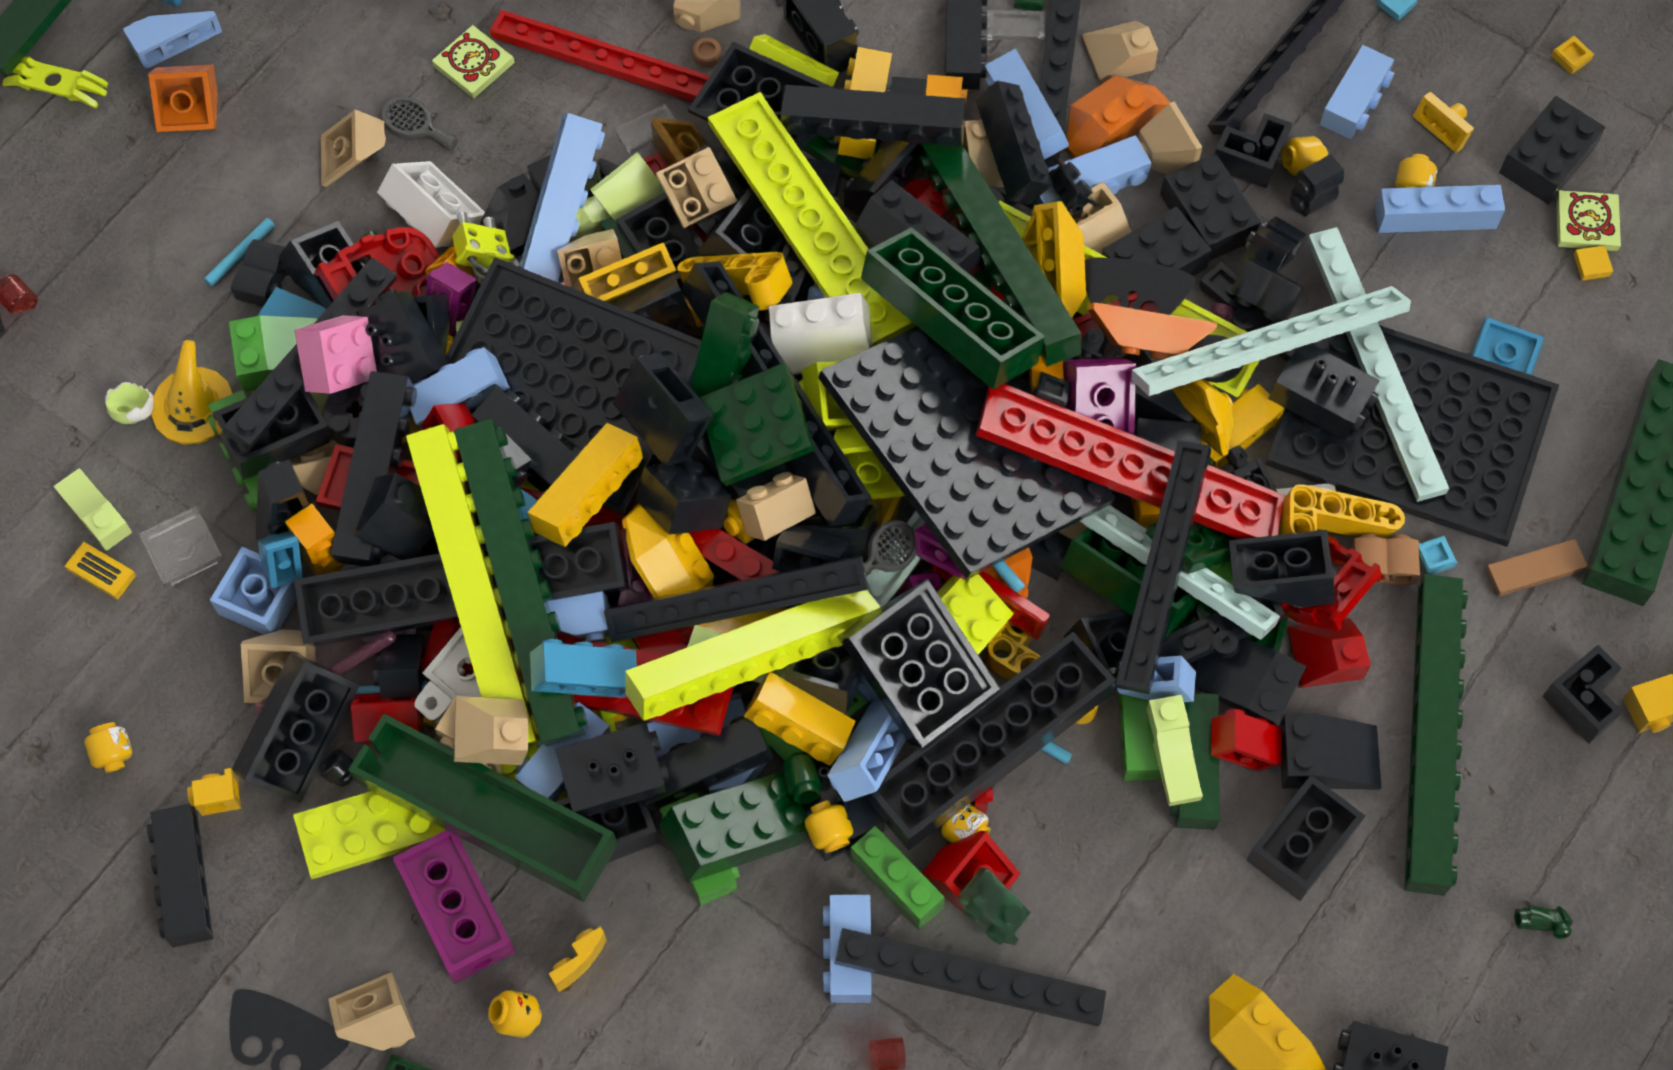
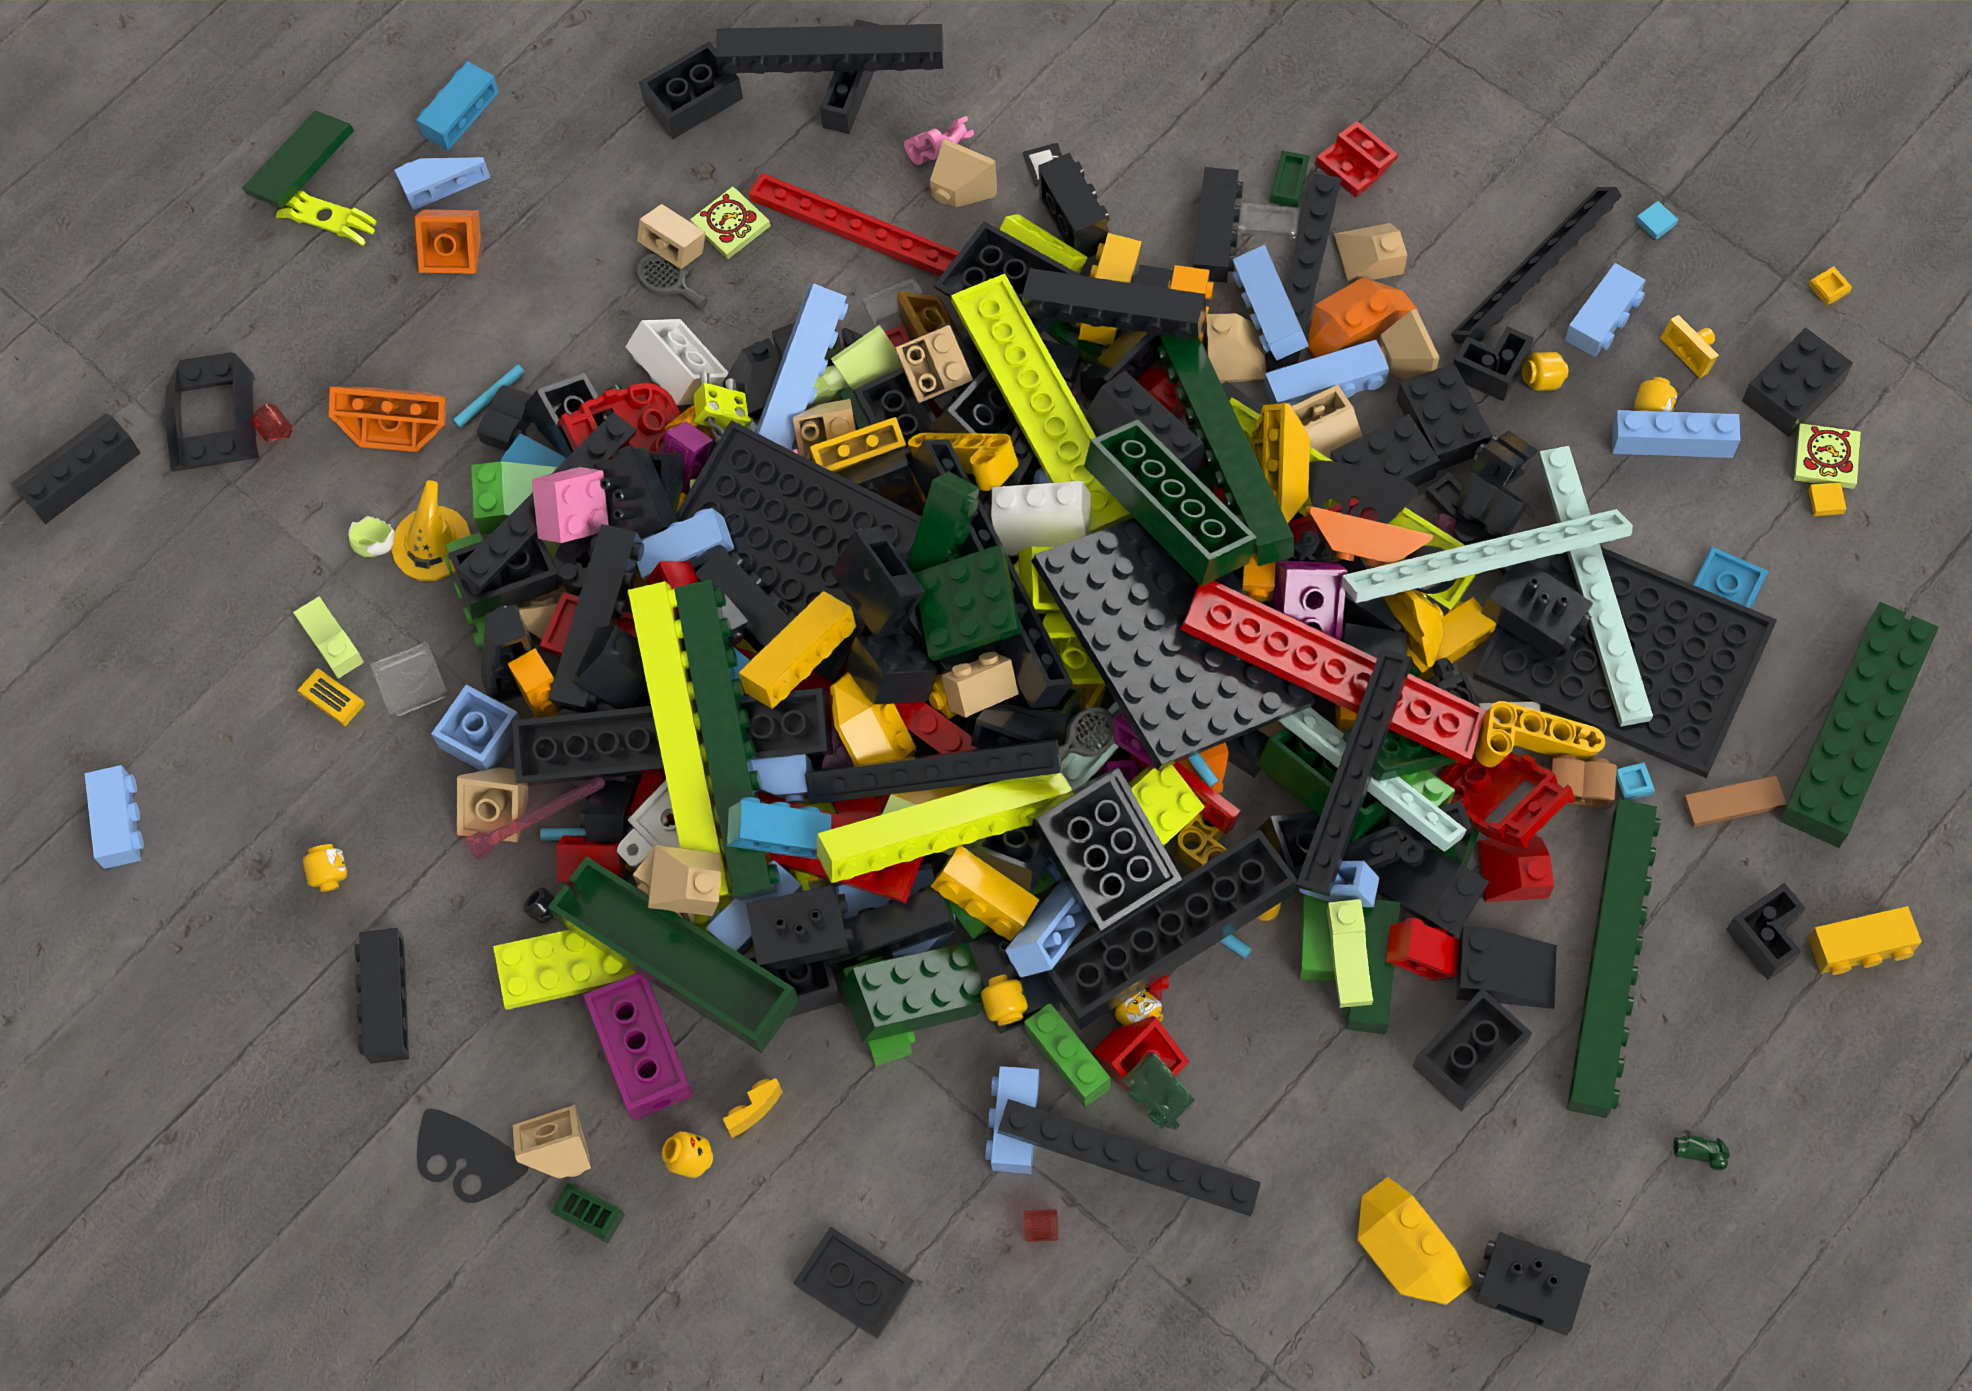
camera: 10 degrees right, 0 degrees up
(136, 279) = (387, 416): none -> orange wedge
(215, 793) = (422, 919): yellow brick -> none
(280, 558) = (501, 699): dark azure slope -> none
(295, 727) = (502, 862): black slope -> none
(349, 144) = (603, 297): tan slope -> none
(414, 78) = (671, 236): none -> tan brick
(707, 52) = (960, 228): medium nougat tile -> none
(802, 778) = (982, 951): dark green brick -> none
(1013, 142) = (1252, 339): black brick -> none
(1052, 389) = (1262, 589): black slope -> none
(1072, 190) = (1305, 390): black hinge -> none
(1284, 568) = (1476, 783): black slope -> none
(1317, 185) = (1553, 402): black brick -> none

